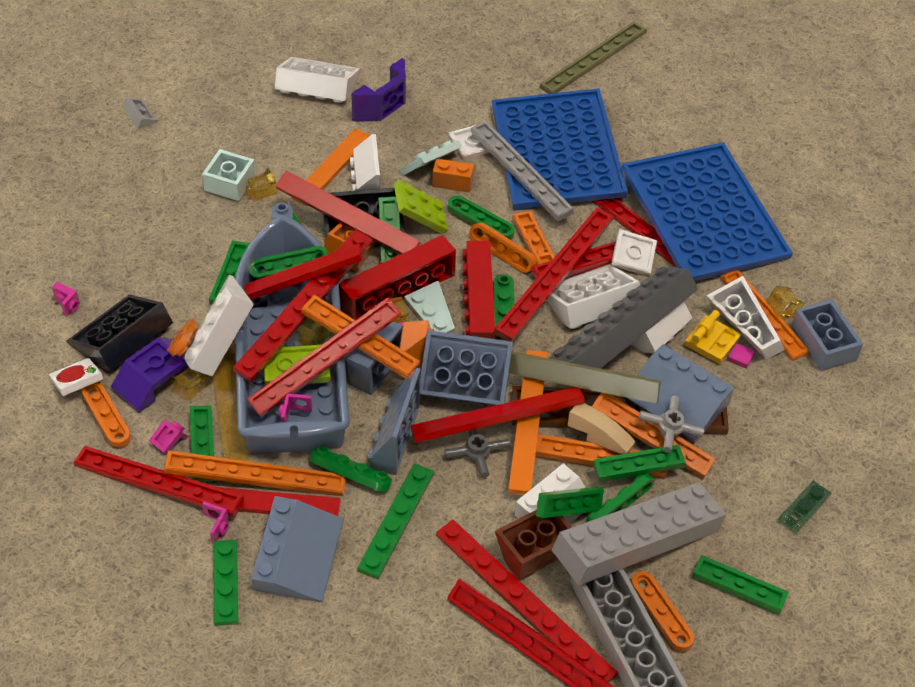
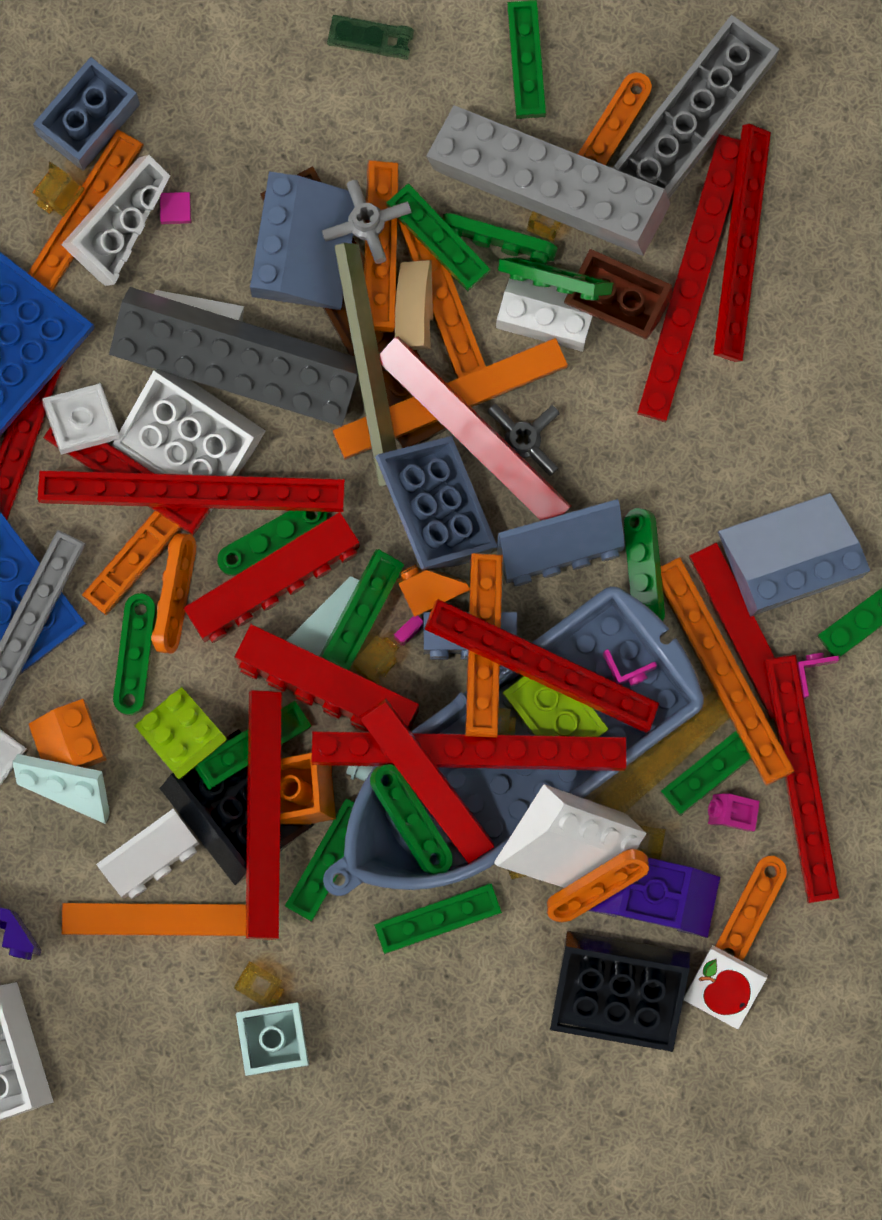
camera: 120 degrees left, 30 degrees up
(66, 297) = (611, 1102): dark pink bracket -> none
(395, 521) = (676, 476): green plate -> none
(425, 308) = (362, 609): none -> green plate
(712, 338) = (172, 252): yellow plate -> none

